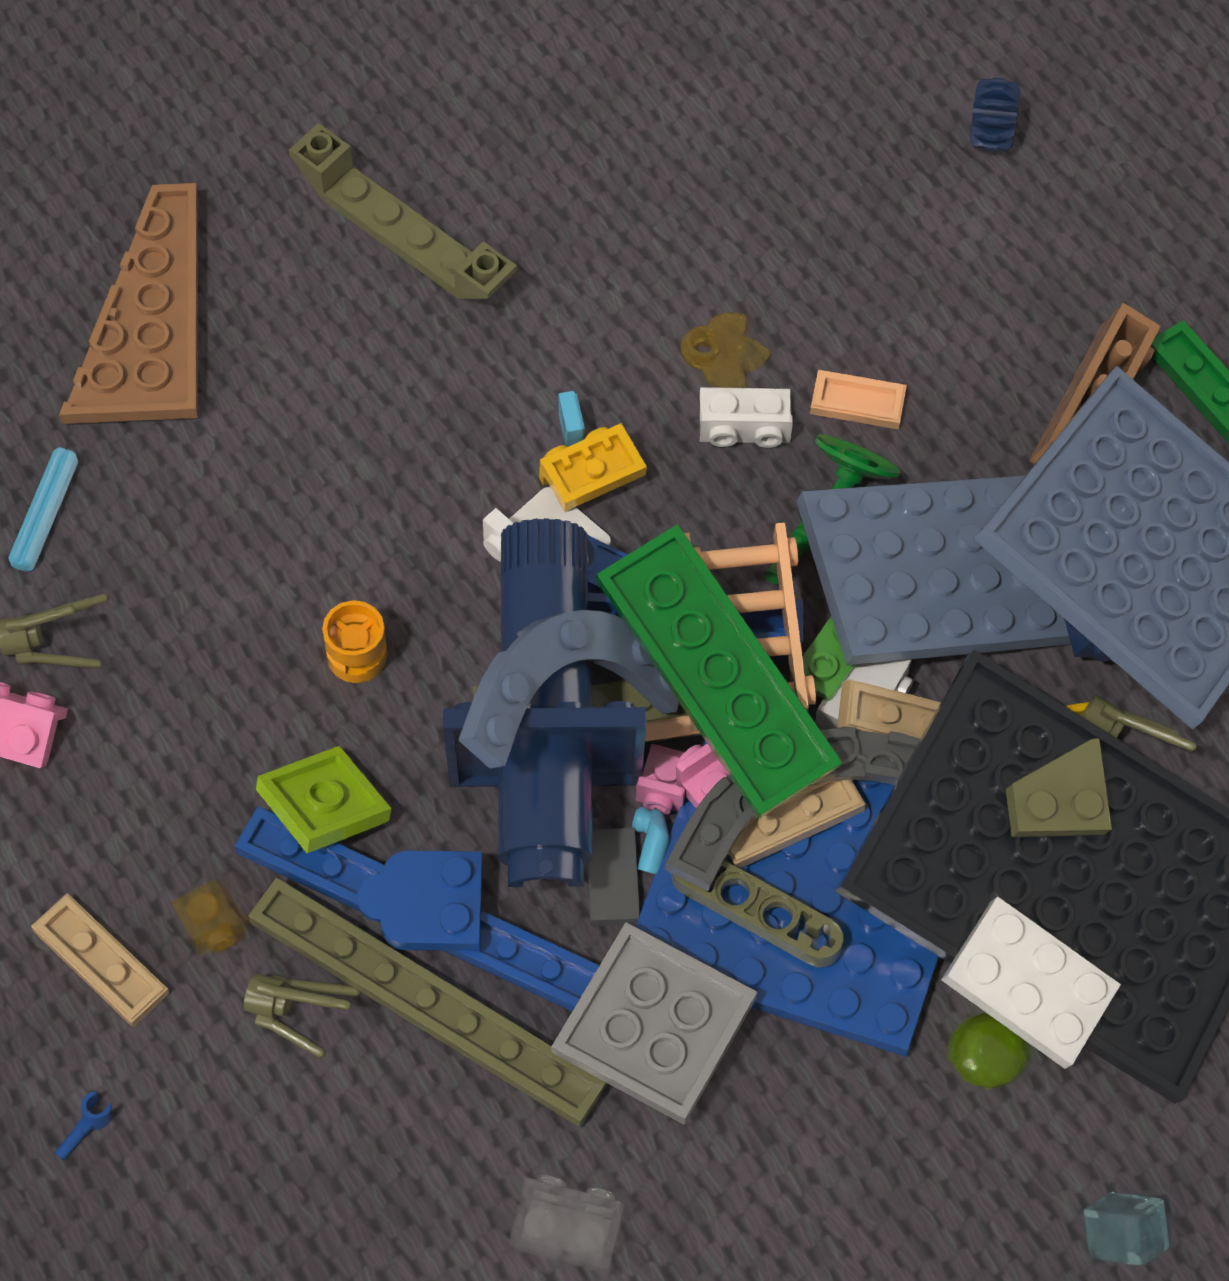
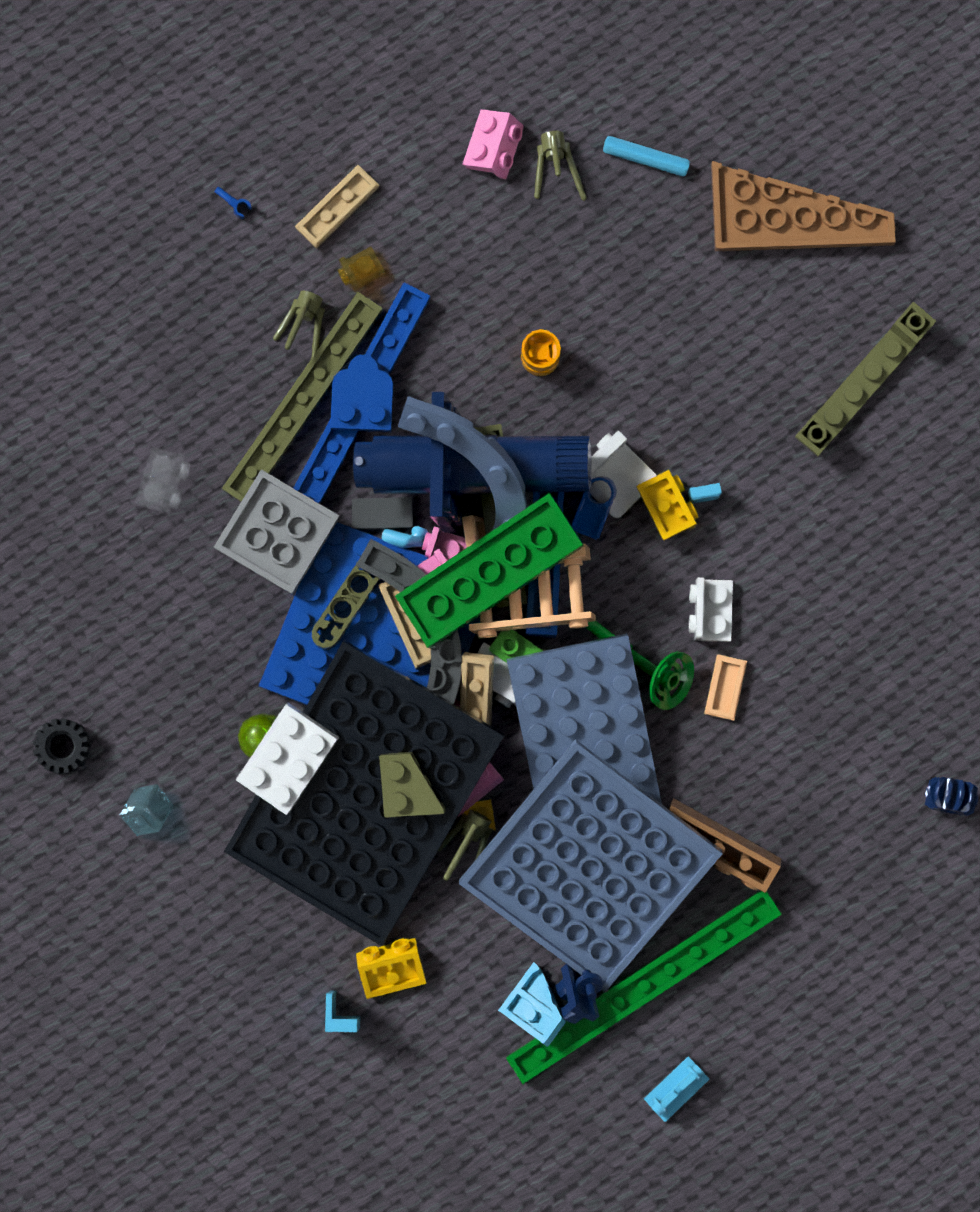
camera: 95 degrees right, 20 degrees up
(323, 799) = (432, 334): lime plate -> none
(729, 353) = (760, 602): clear yellow plate -> none

